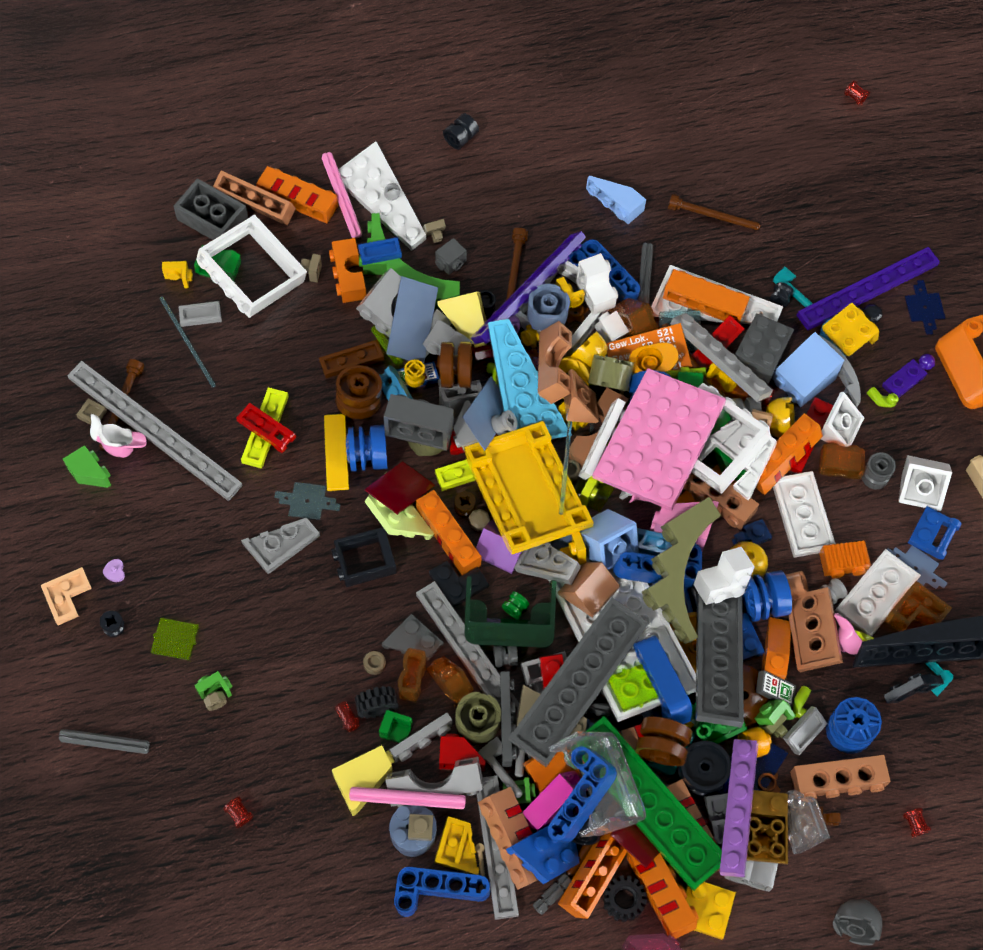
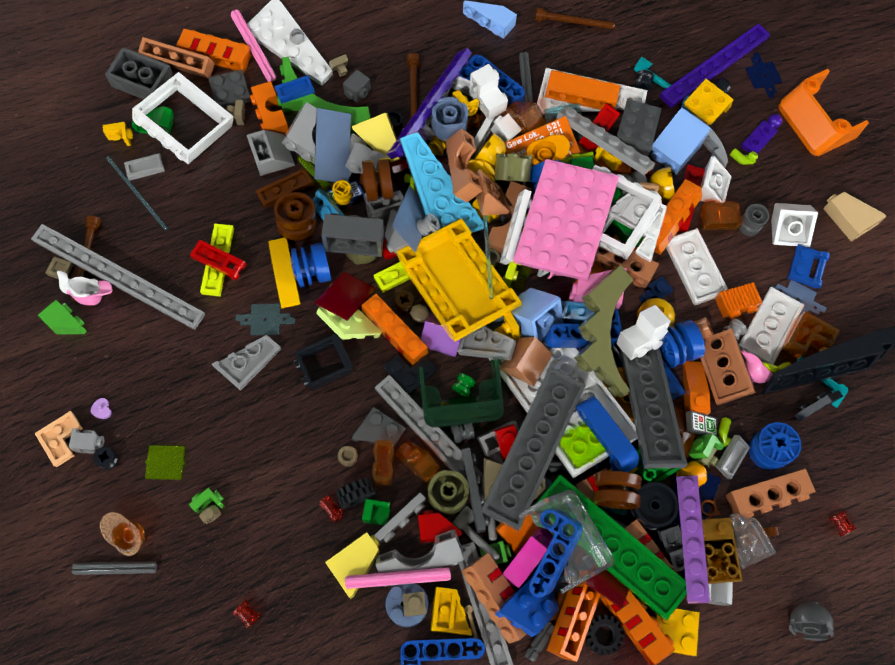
camera: 10 degrees left, 5 degrees up
(93, 603) = (85, 442): none -> light grey brick
(118, 704) = (122, 533): none -> clear orange piece
(307, 239) = (229, 88): none -> dark grey plate
(341, 317) = (269, 151): none -> light grey slope

